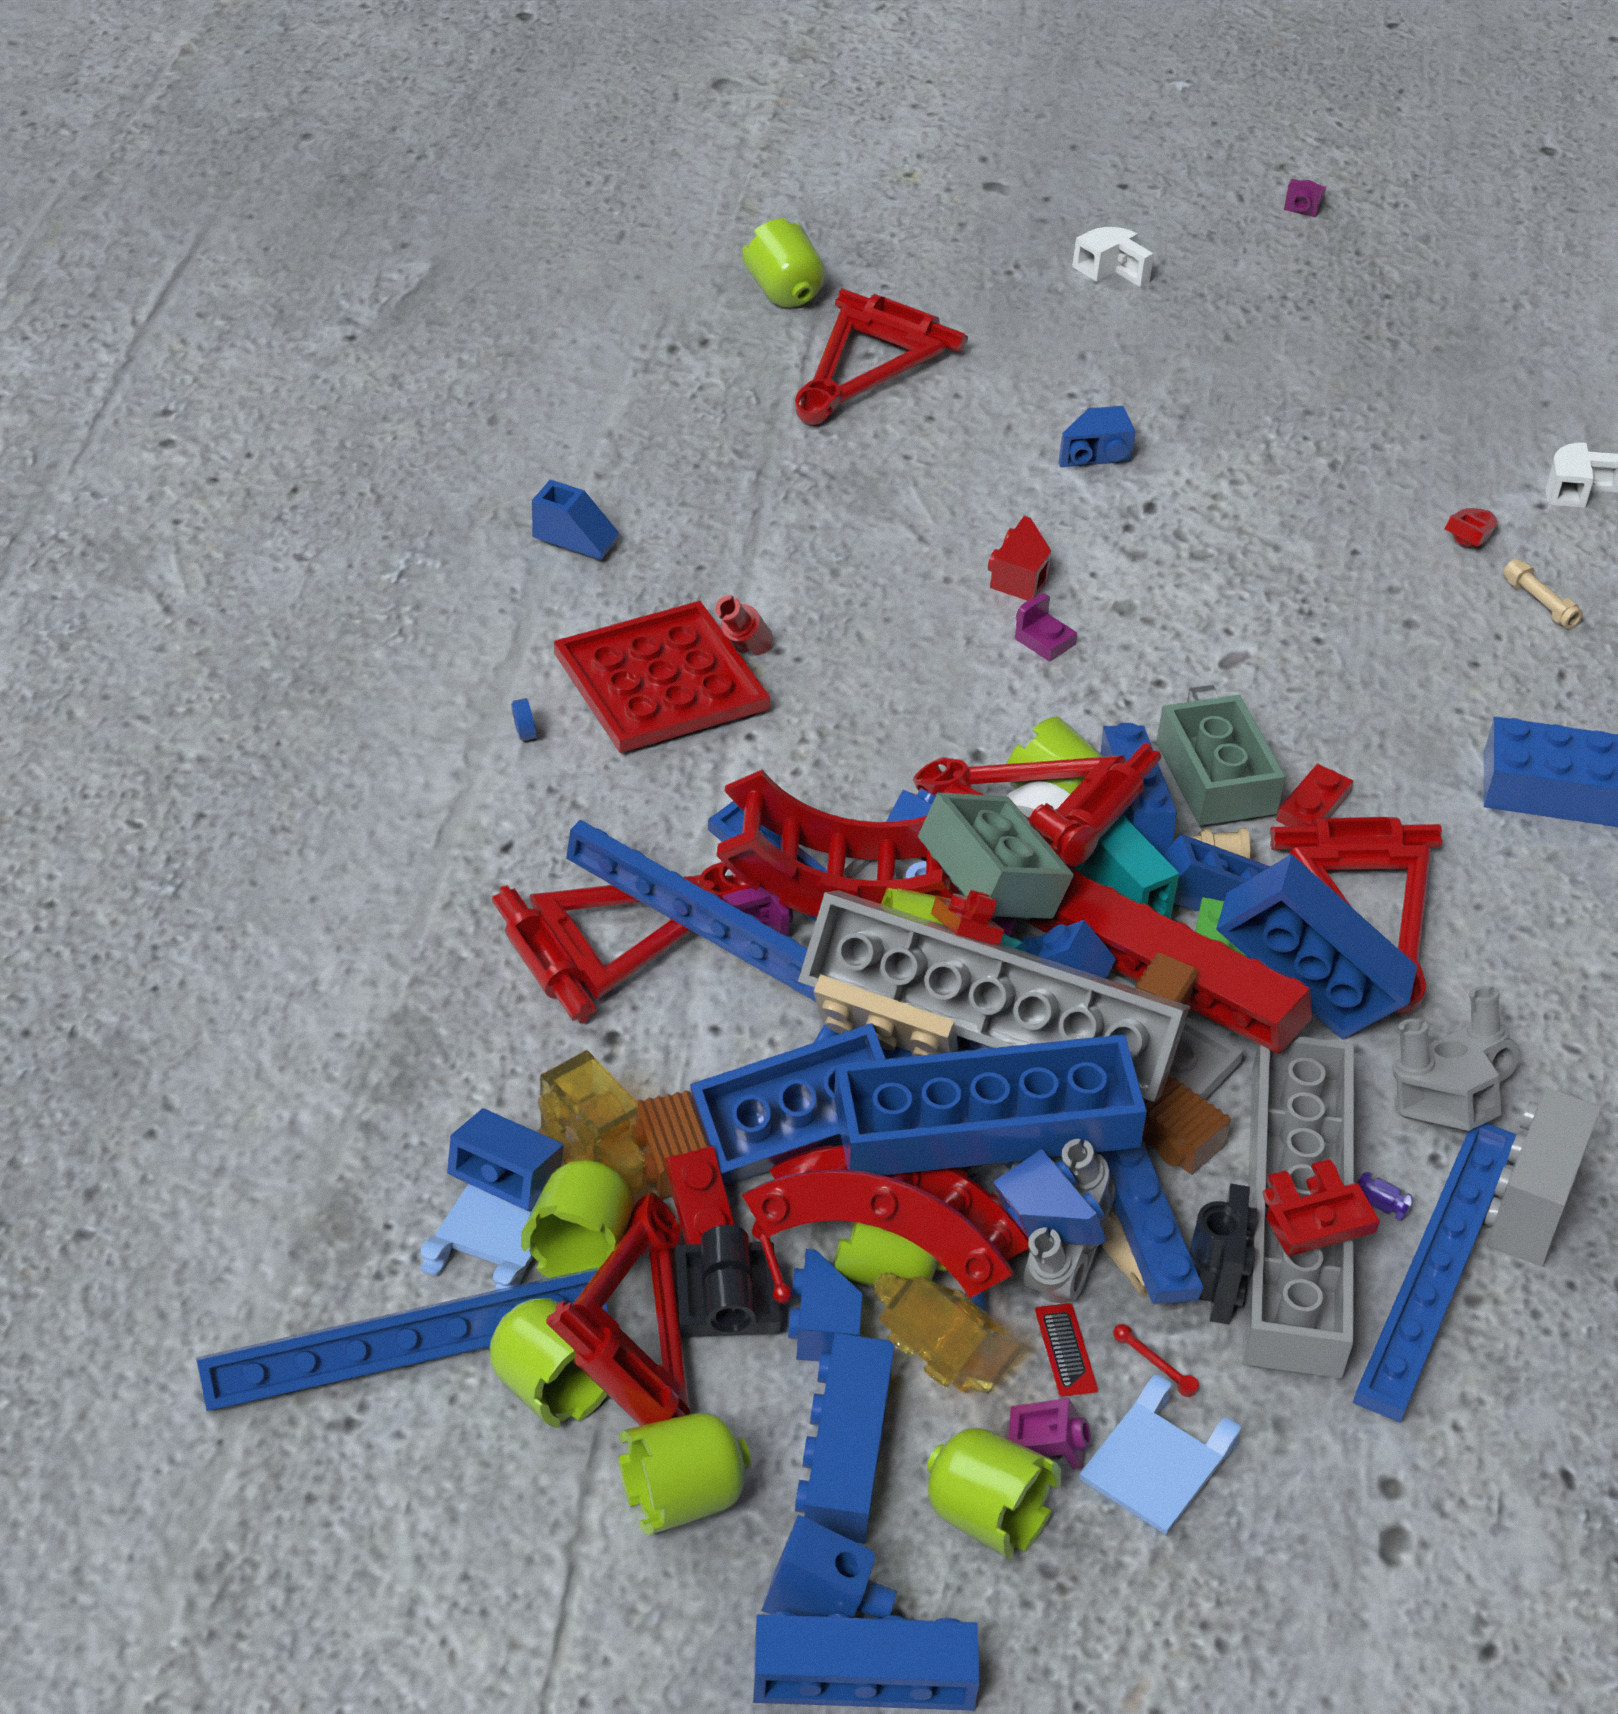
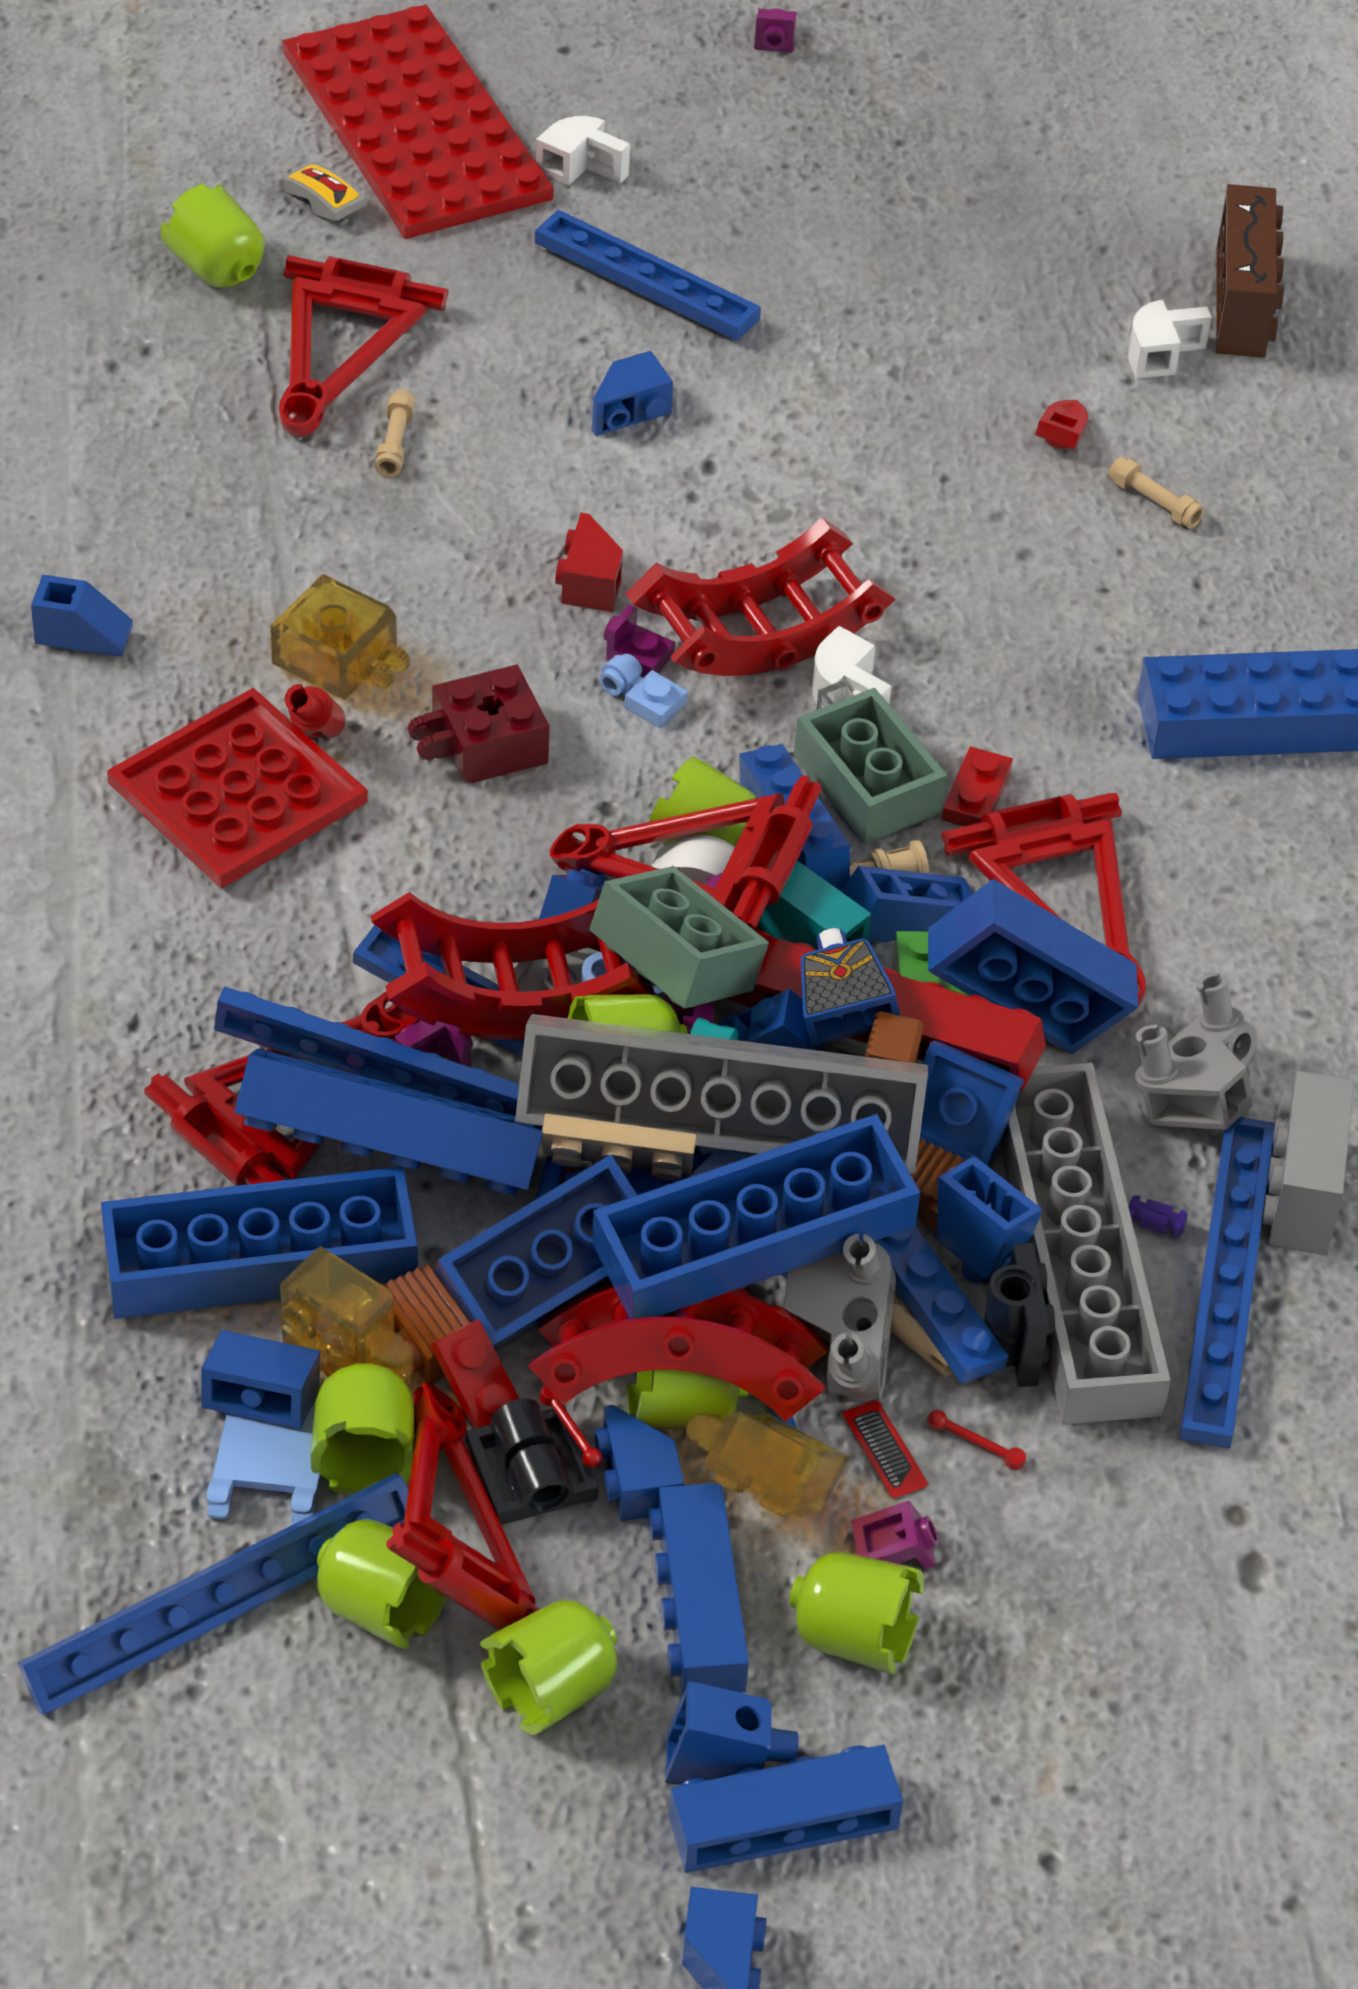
camera: 15 degrees left, 5 degrees up
(513, 1034) = (249, 1238): none -> blue brick
(523, 719) = (105, 872): blue tile -> none
(689, 958) = (388, 1119): none -> blue brick
(783, 575) = (338, 639): none -> clear yellow hinge
(879, 449) = (391, 454): none -> tan bar
(888, 664) = (485, 724): none -> dark red hinge
(891, 250) = (327, 191): none -> slope
(969, 916) = (678, 1015): red plate -> none
(984, 216) = (417, 121): none -> red plate
(1043, 673) = (648, 697): none -> light blue plate
(1045, 1196) = (834, 1301): slope -> none
(1069, 838) = (753, 901): red pin -> none
(1104, 605) = (742, 590): none -> red fence
(1130, 928) = (843, 988): none -> torso
(1142, 354) = (647, 275): none -> blue plate
(1154, 1464) = (1004, 1546): light blue flag -> none
(1209, 1154) = (982, 1218): none -> blue torso
(1221, 1053) = (966, 1103): none -> blue plate
(1227, 673) = (846, 659): none -> white brick
(1321, 1219) = (1110, 1261): red plate -> none

